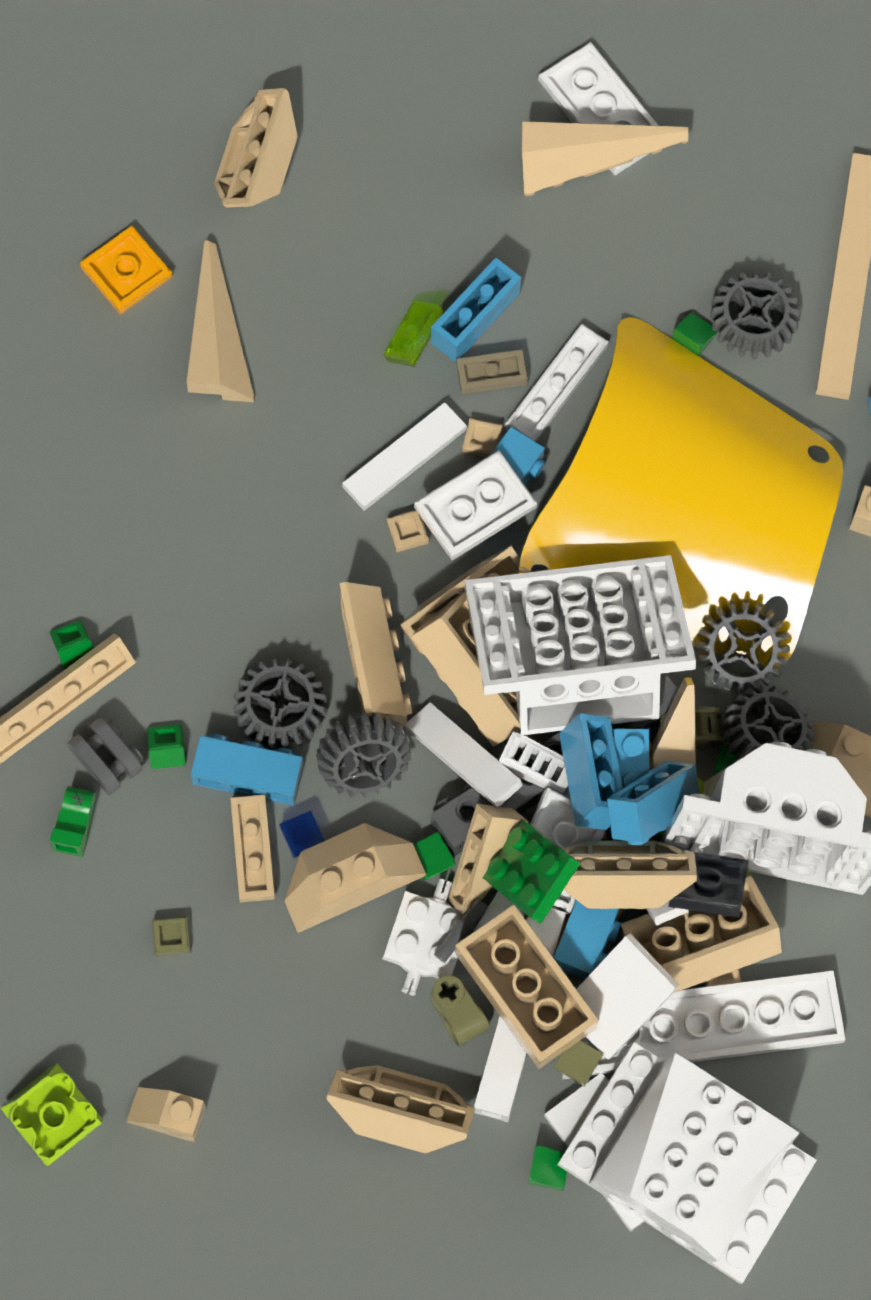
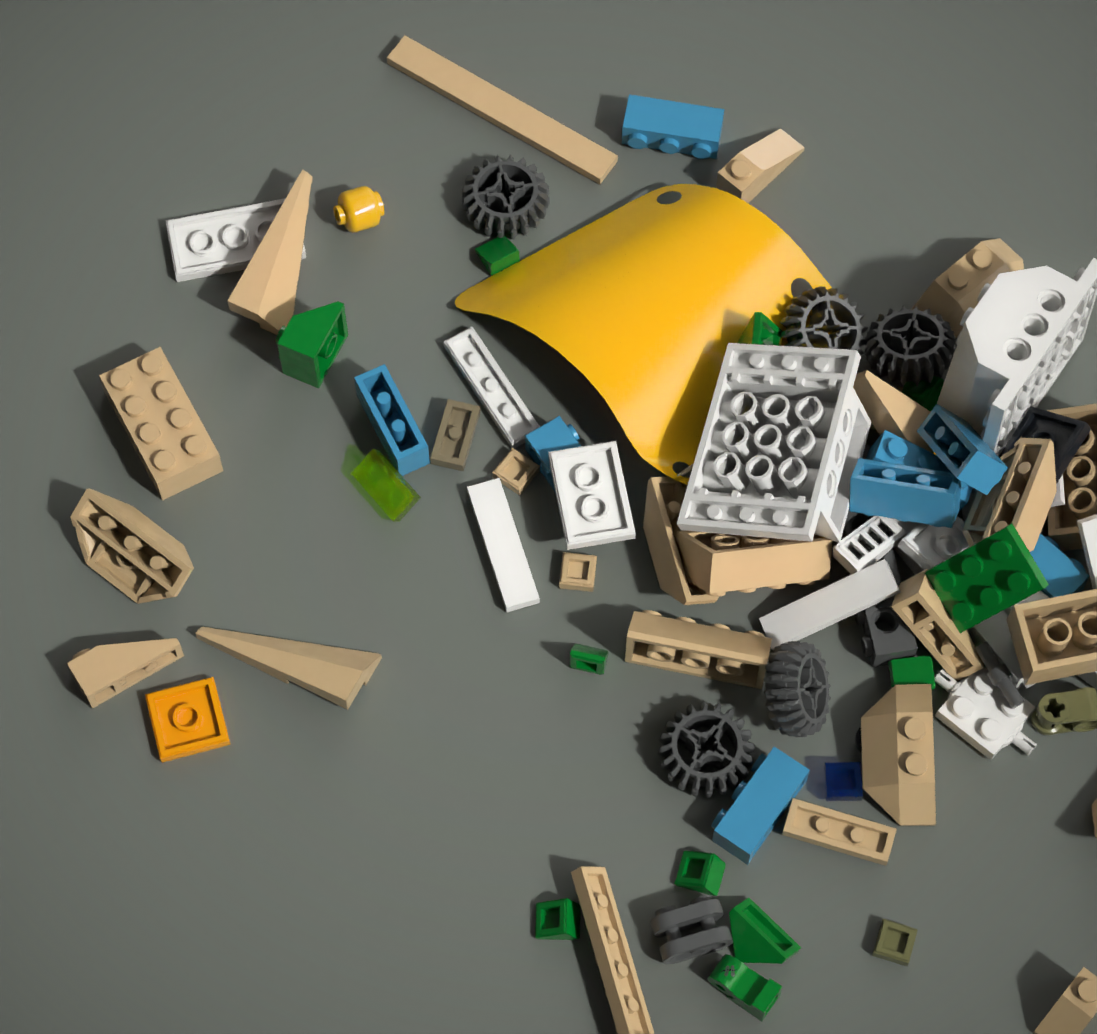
camera: 65 degrees left, 5 degrees down
(127, 816) = (758, 936): none -> green slope
(139, 187) = (116, 667): none -> tan slope
(327, 570) = (588, 659): none -> green slope
(386, 125) = (161, 423): none -> tan brick
(520, 212) = (312, 342): none -> green slope
(678, 195) = (359, 209): none -> yellow head
(699, 590) = (761, 331): none -> green slope

